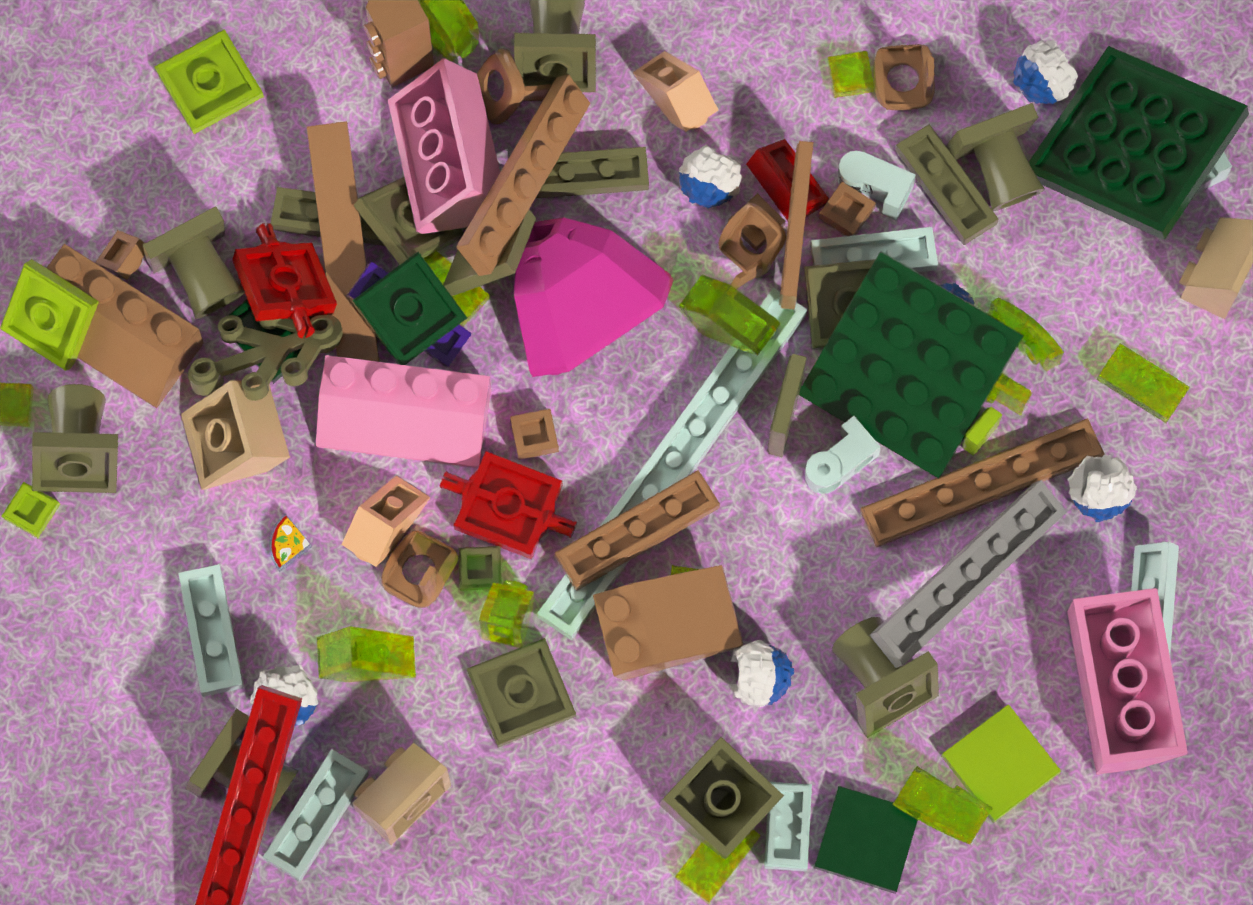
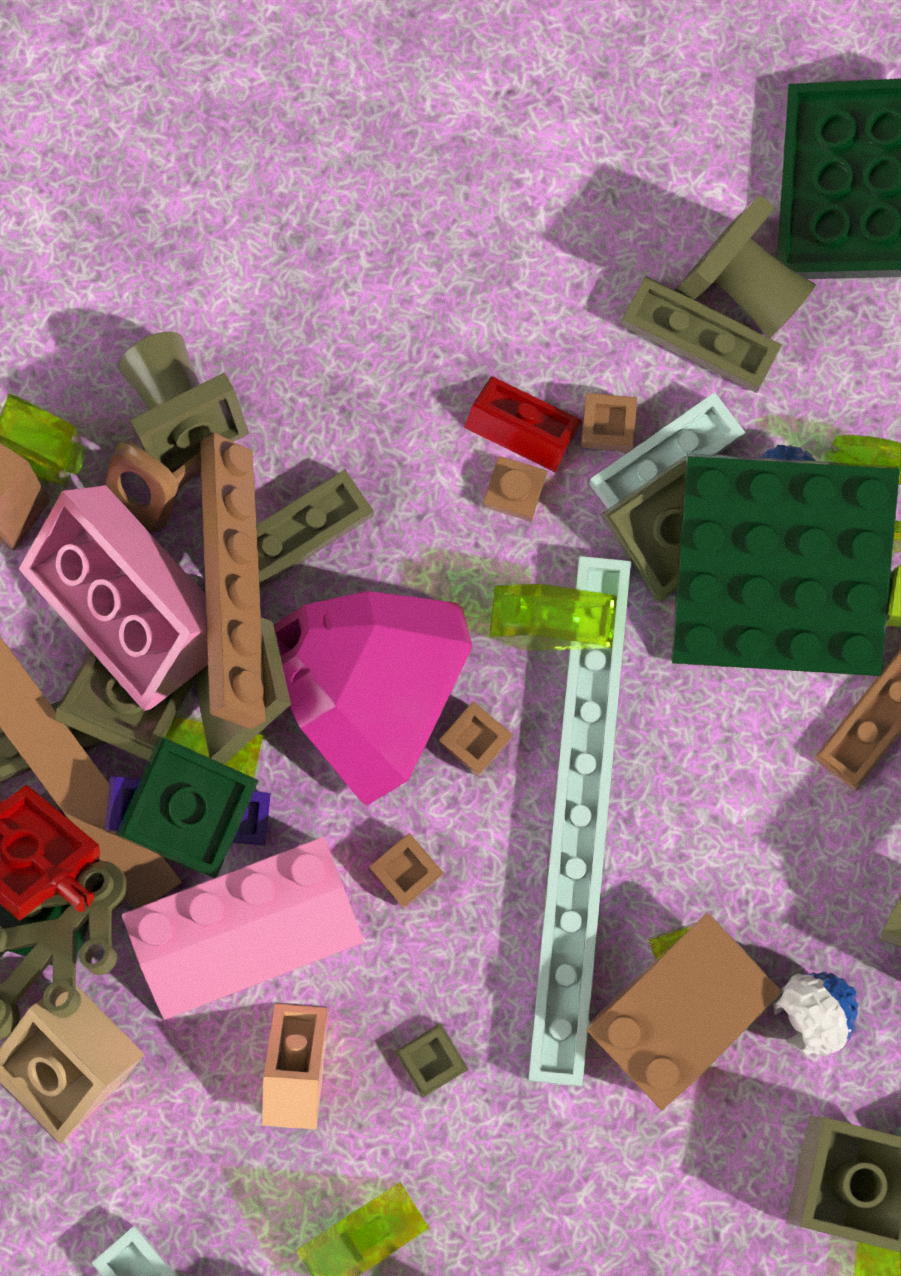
camera: 30 degrees left, 5 degrees up
(286, 543) = (195, 1154): tile -> none
(435, 577) = (383, 1129): medium nougat piece -> none
(507, 613) = (496, 1098): clear neon green slope -> none
(508, 505) = (423, 970): red plate -> none
(521, 692) = (559, 1179): olive tile -> none
(632, 372) = (475, 739): none -> medium nougat plate
(637, 530) = (588, 922): medium nougat tile -> none
(677, 91) = (342, 384): light nougat slope -> none
(709, 177) = (437, 466): white piece -> none
(731, 244) = (536, 540): medium nougat piece -> none
(786, 405) = (675, 687): olive tile -> none
(796, 225) = (569, 472): medium nougat tile -> none
(832, 468) = (760, 729): light aqua leg -> none
(850, 74) = (523, 263): clear neon green plate -> none
(877, 180) = (623, 370): light aqua leg -> none
(915, 56) = (590, 206): medium nougat piece -> none
(1044, 73) = (739, 151): piece -> none

